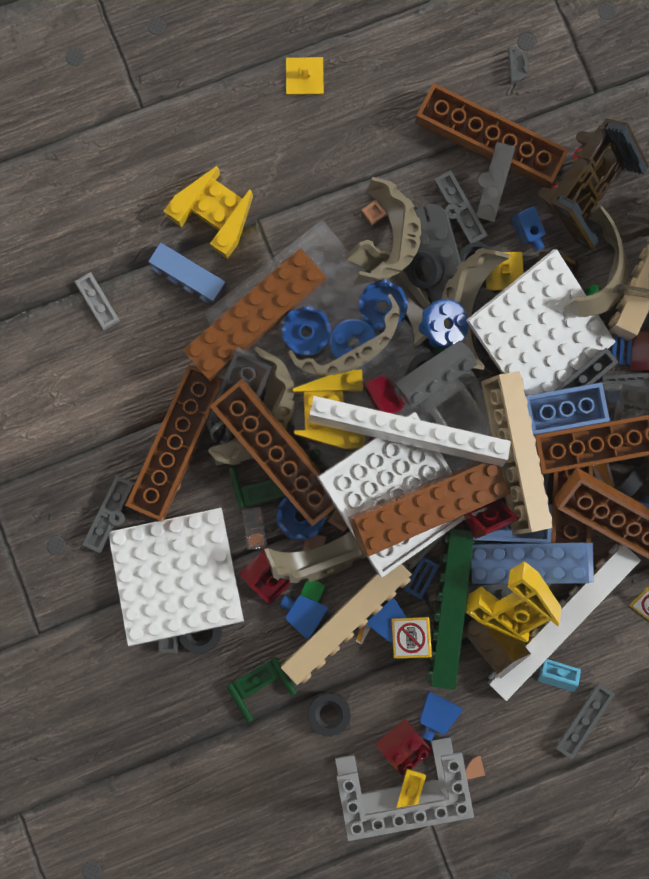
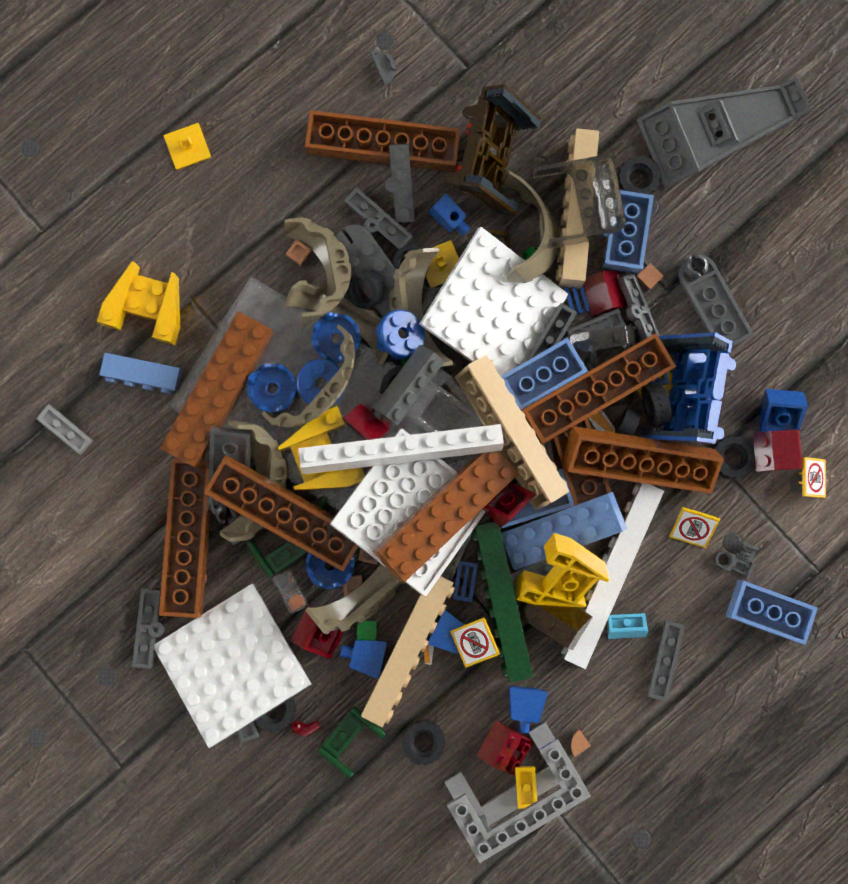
camera: 20 degrees left, 0 degrees up
(221, 661) = (305, 729): none -> dark red arm

